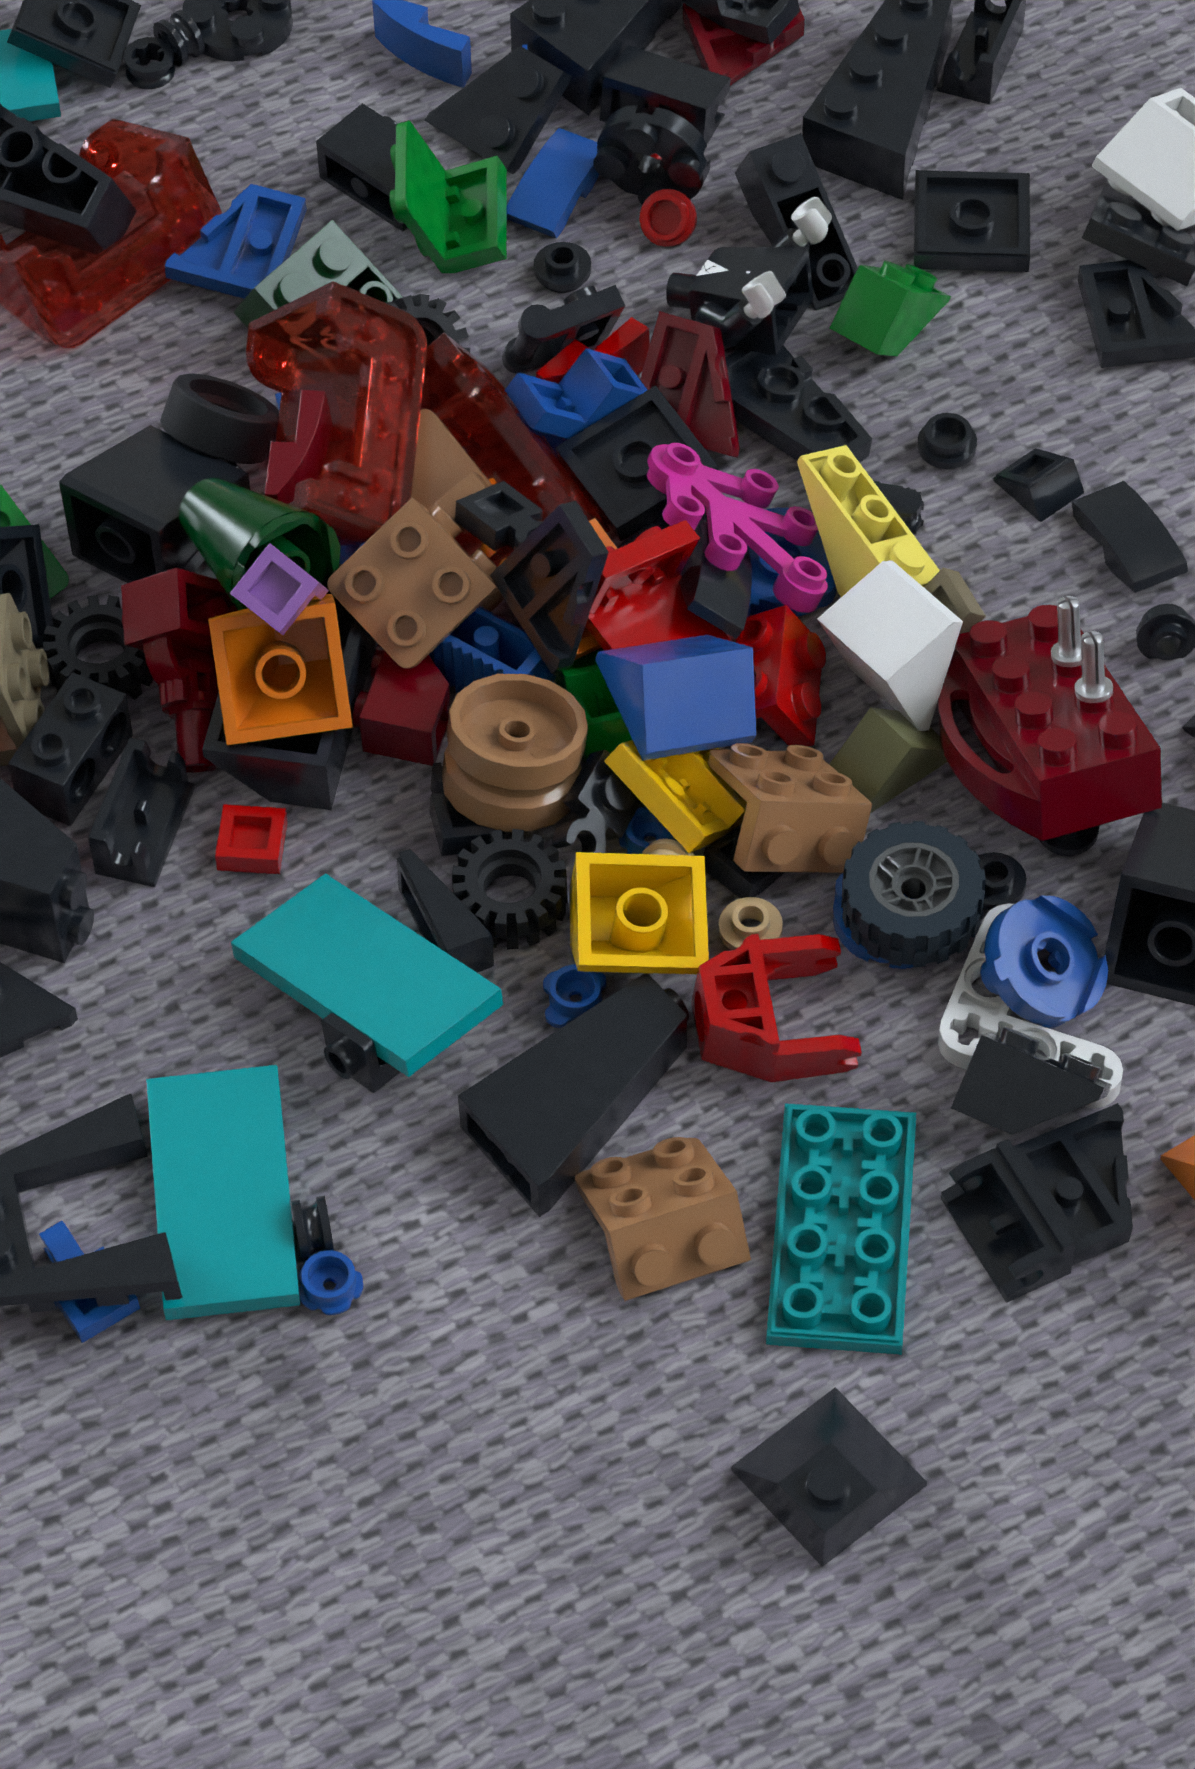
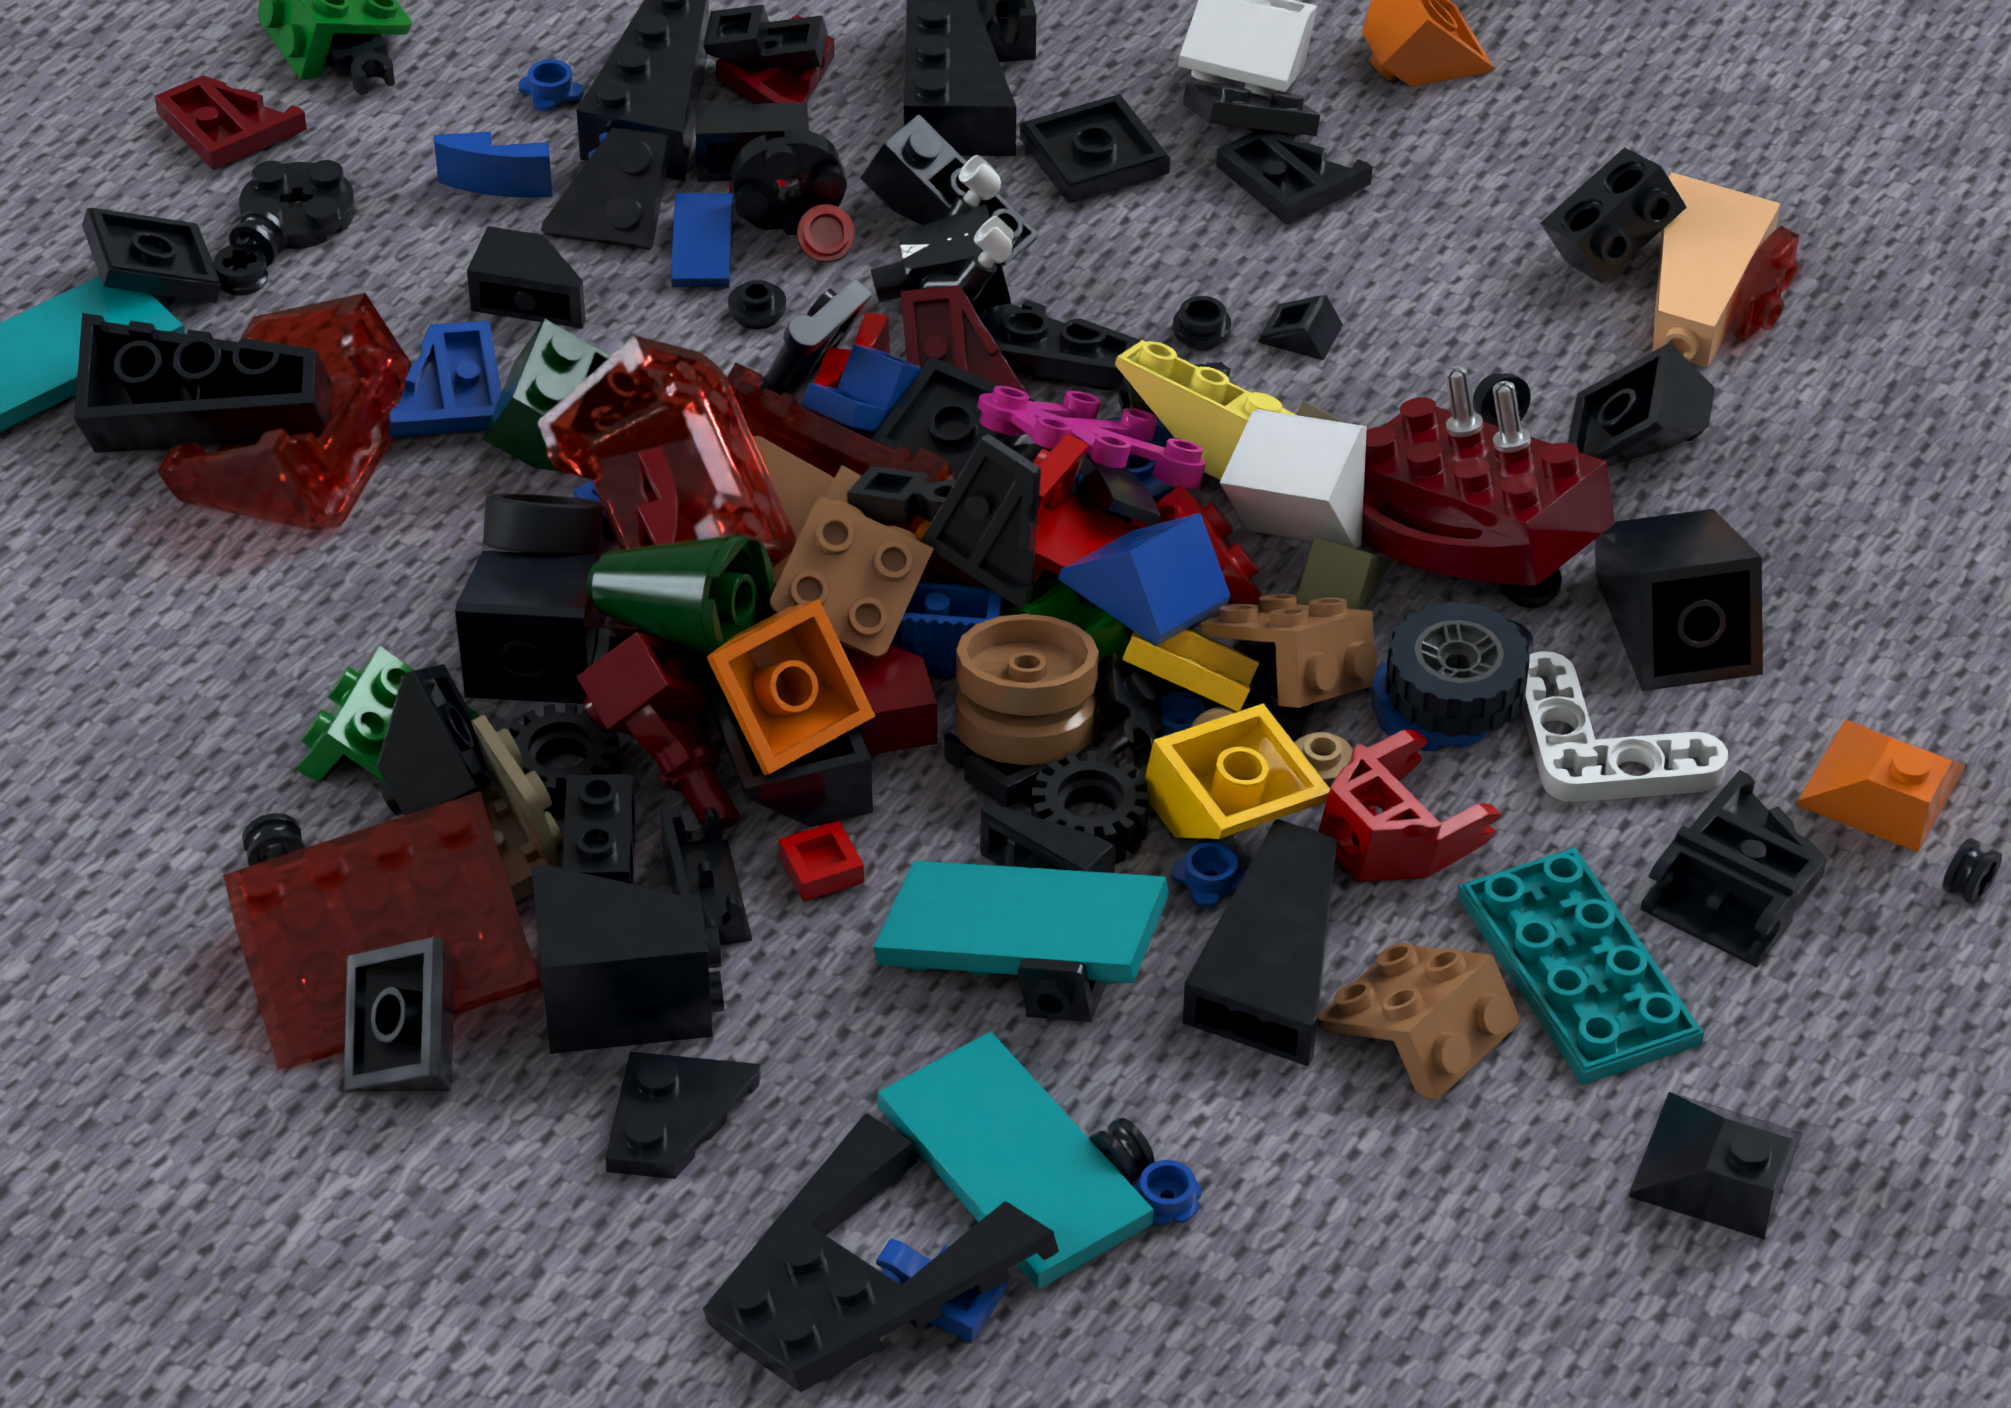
camera: 30 degrees left, 10 degrees down
(277, 589) = (764, 601): medium lavender panel -> none
(451, 212) = (637, 280): green bracket -> none
(888, 307) = (1078, 233): green slope -> none
(1018, 976) = (1599, 683): blue plate -> none
(1019, 1088) = (1659, 785): black slope -> none
(1132, 536) = (1419, 340): black slope -> none

